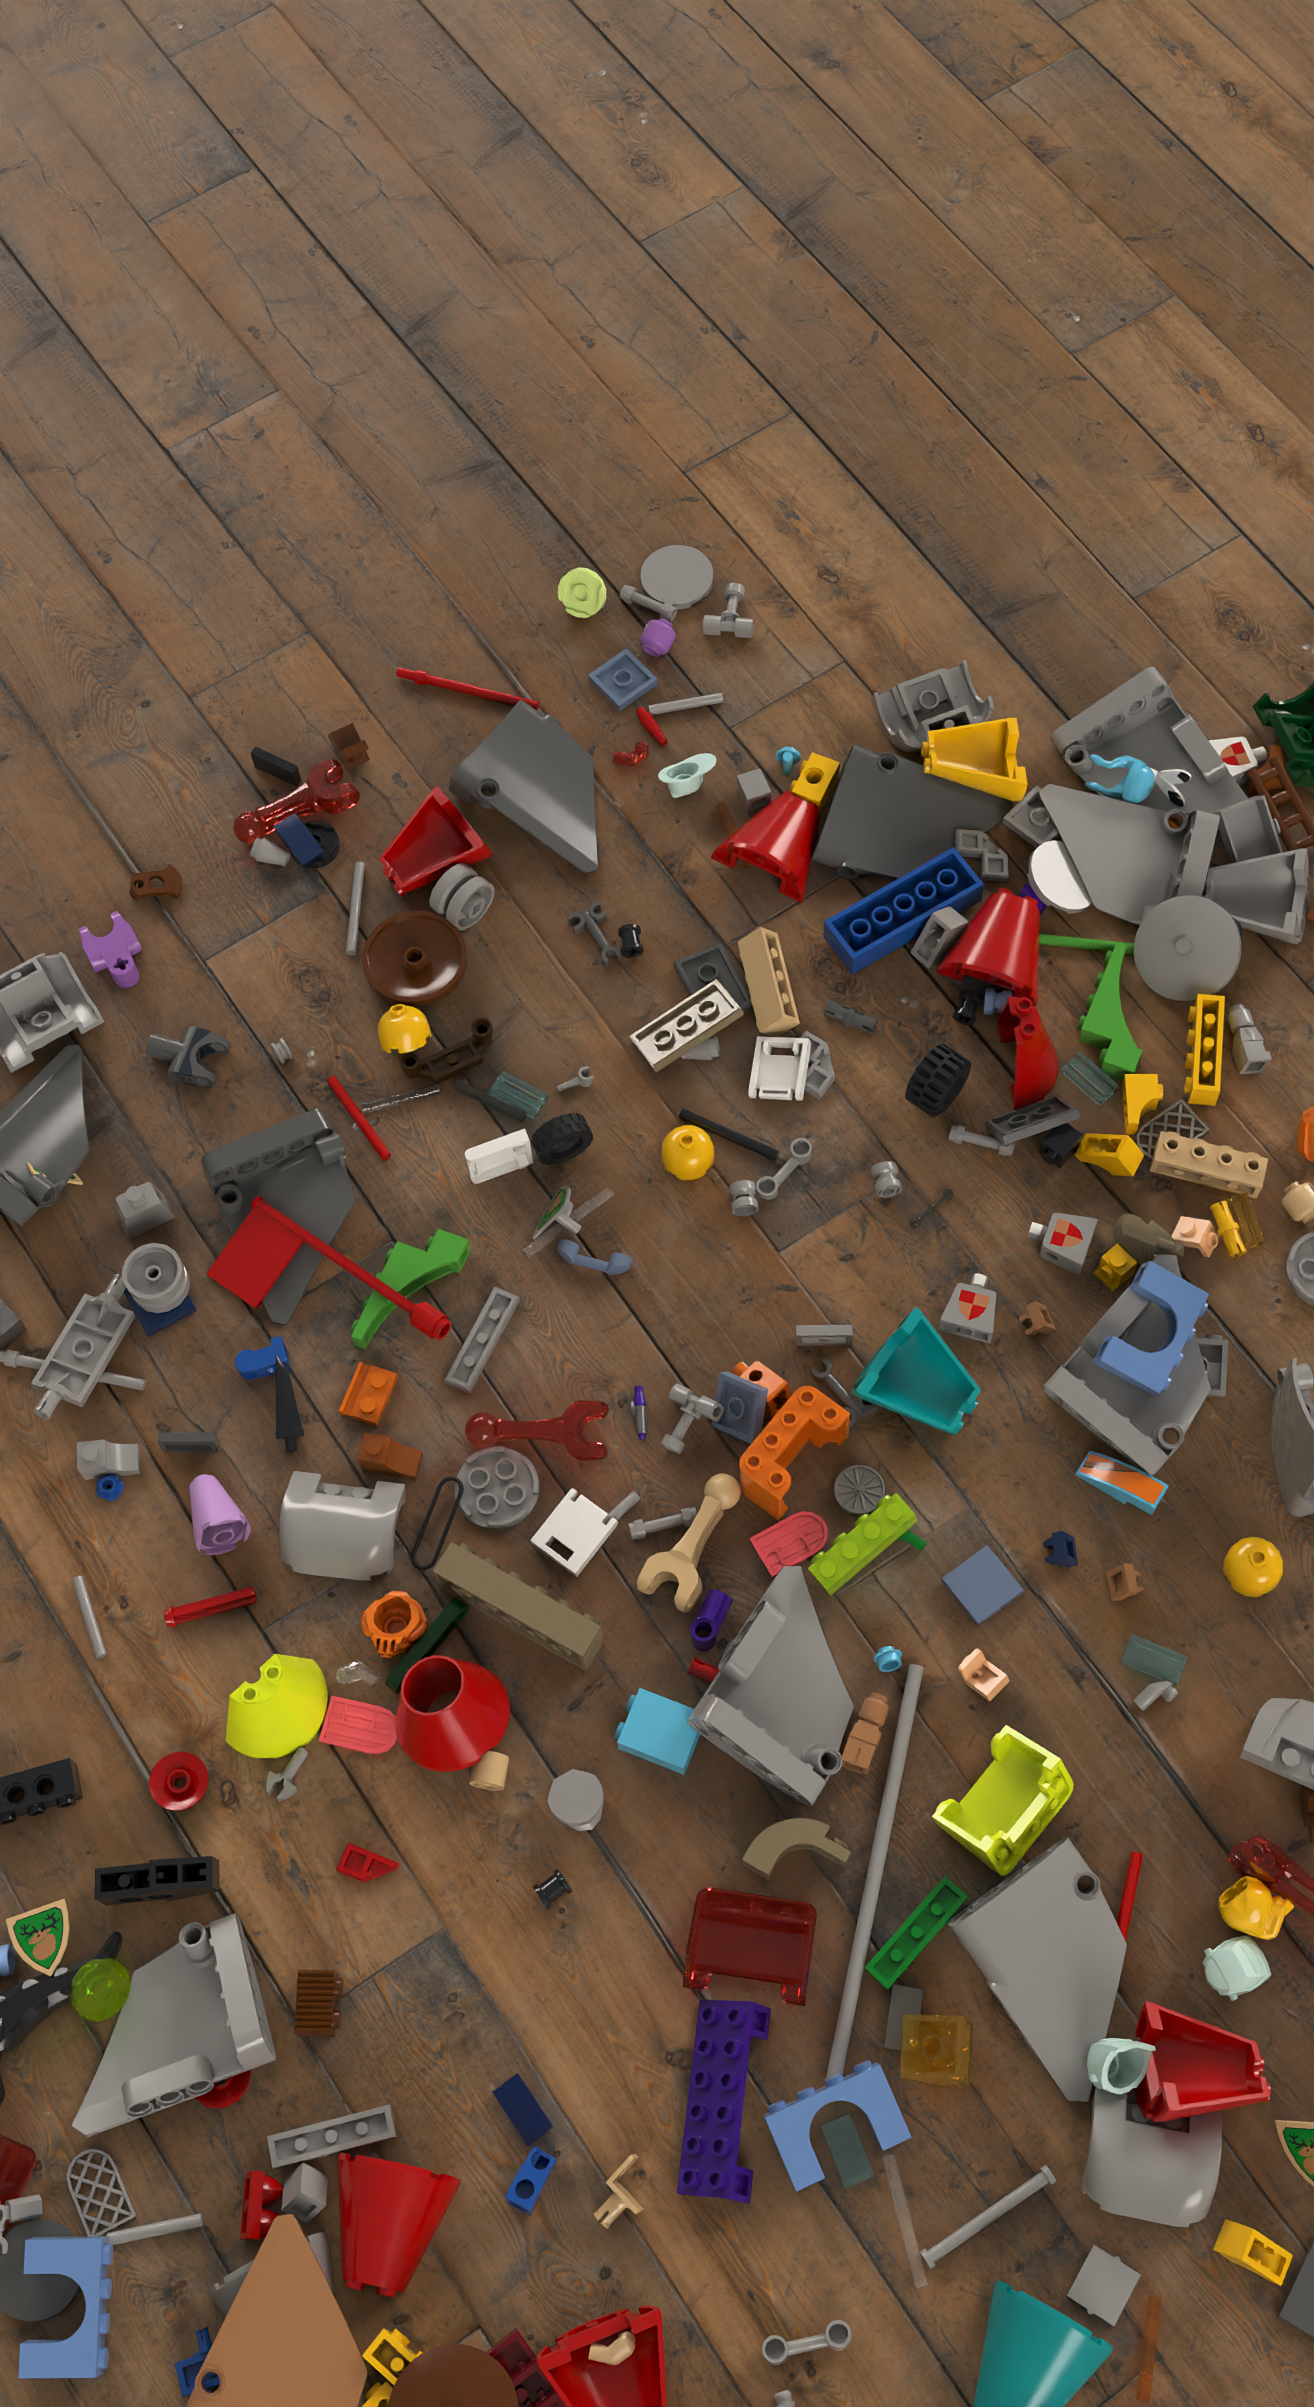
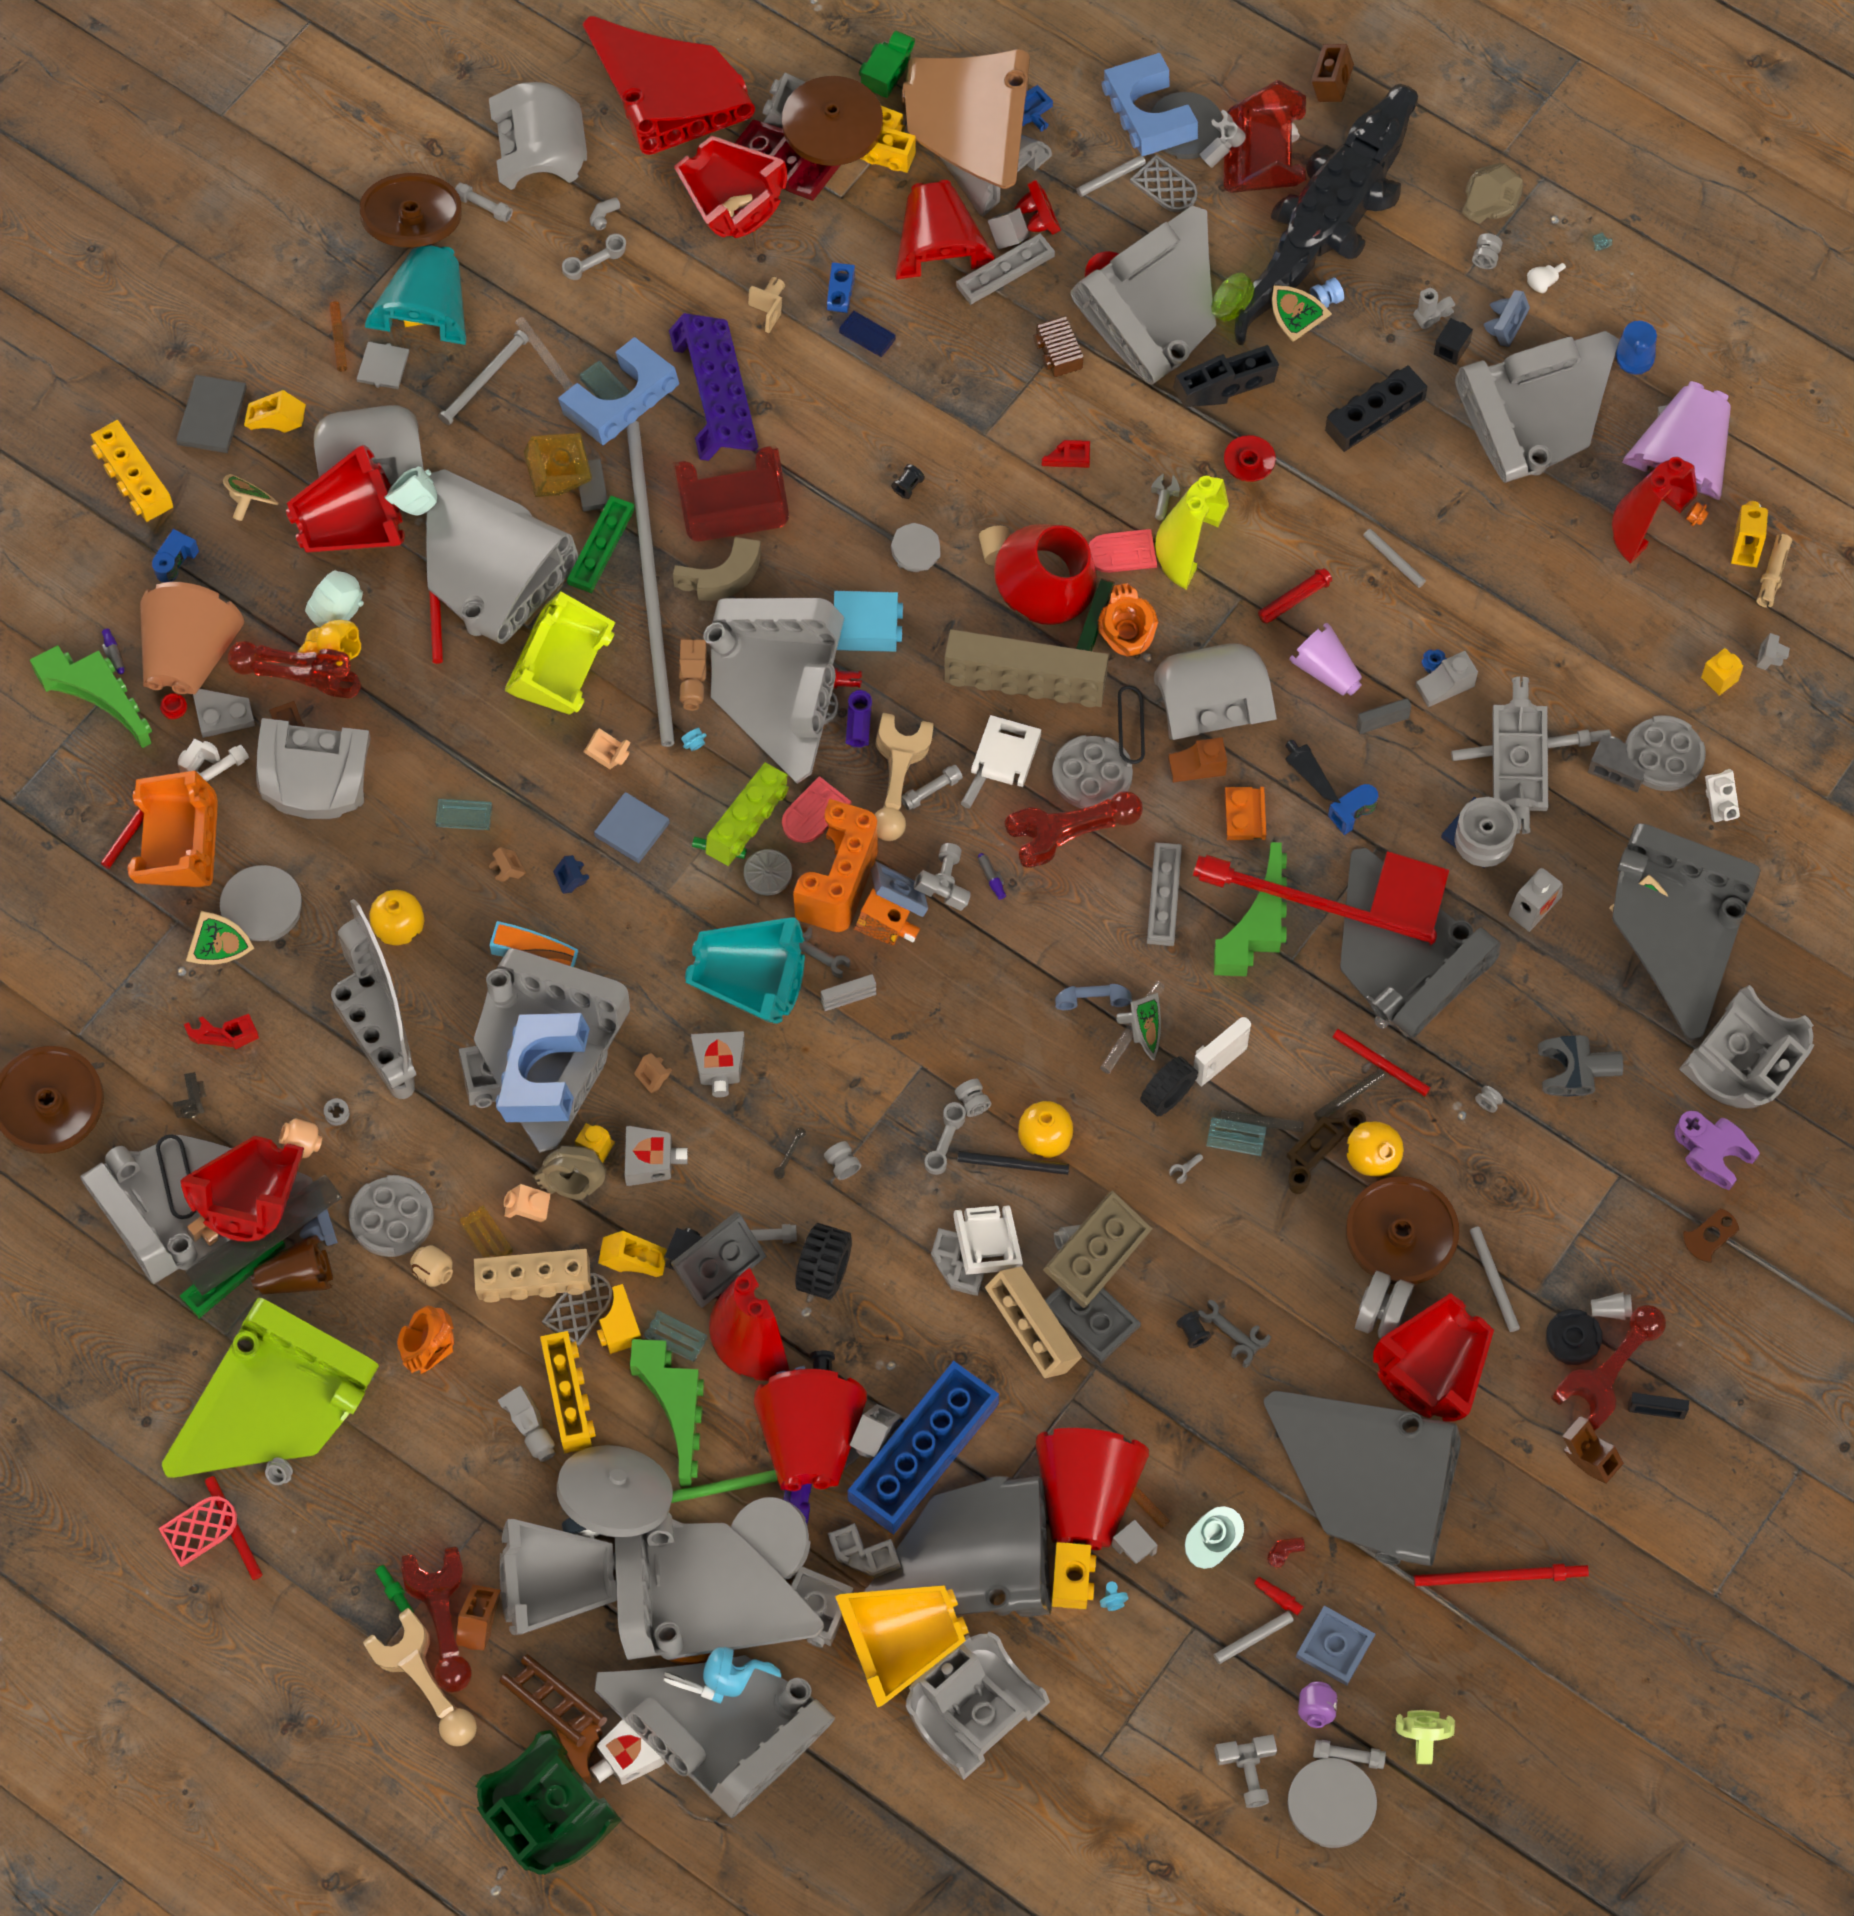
camera: 155 degrees right, 0 degrees up
(298, 840) = (1589, 1322): dark blue slope -> none
(357, 1671) = (1148, 586): clear arm -> none
(850, 1017) = (937, 1322): dark grey pin -> none
(1154, 1691) = (457, 785): light grey arm -> none
(1228, 1229) = (496, 1211): yellow pin -> none
(1249, 830) = (584, 1651): light grey container -> none

